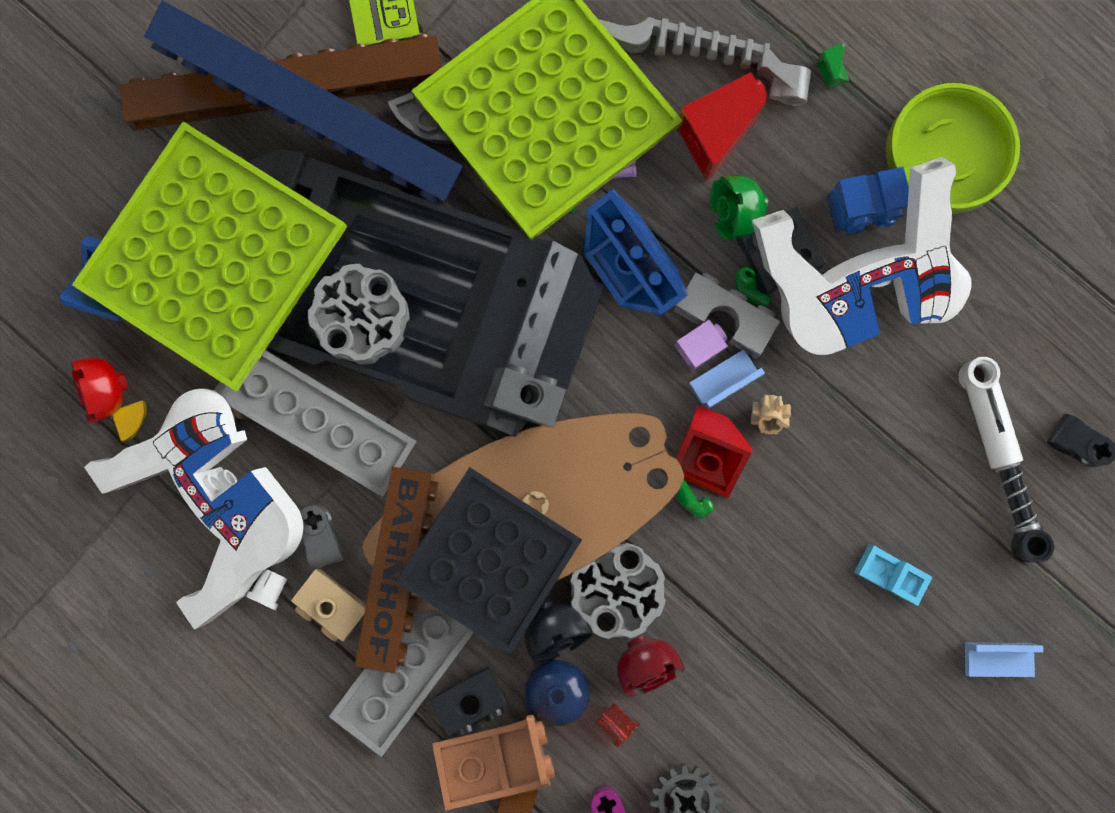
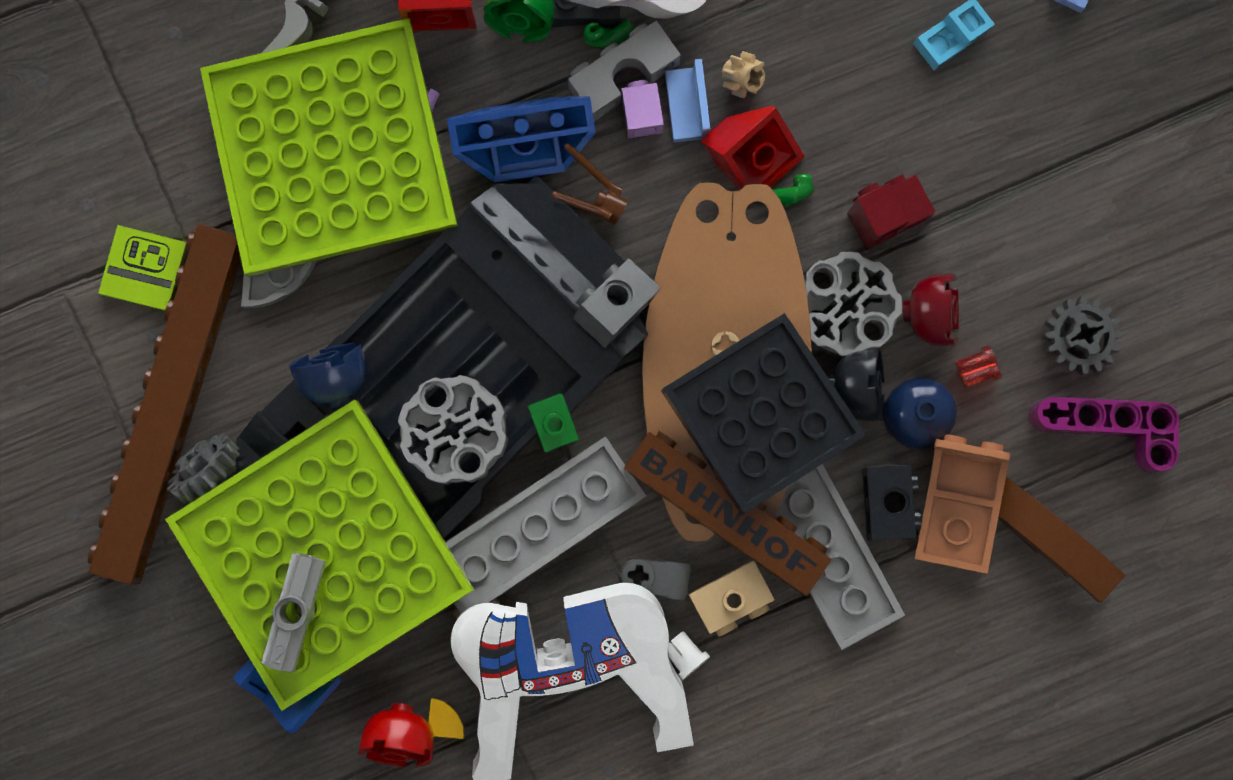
camera: 65 degrees left, 0 degrees up
(131, 258) = (286, 635): none -> light grey piece
(241, 133) = (203, 468): none -> dark grey gear
(298, 99) = (208, 382): dark blue brick -> none
(357, 195) = (331, 374): none -> dark blue cylinder
(404, 392) = (553, 422): none -> green bracket
(606, 353) = (606, 205): none -> reddish brown plant
(715, 589) = (889, 209): none -> dark red brick

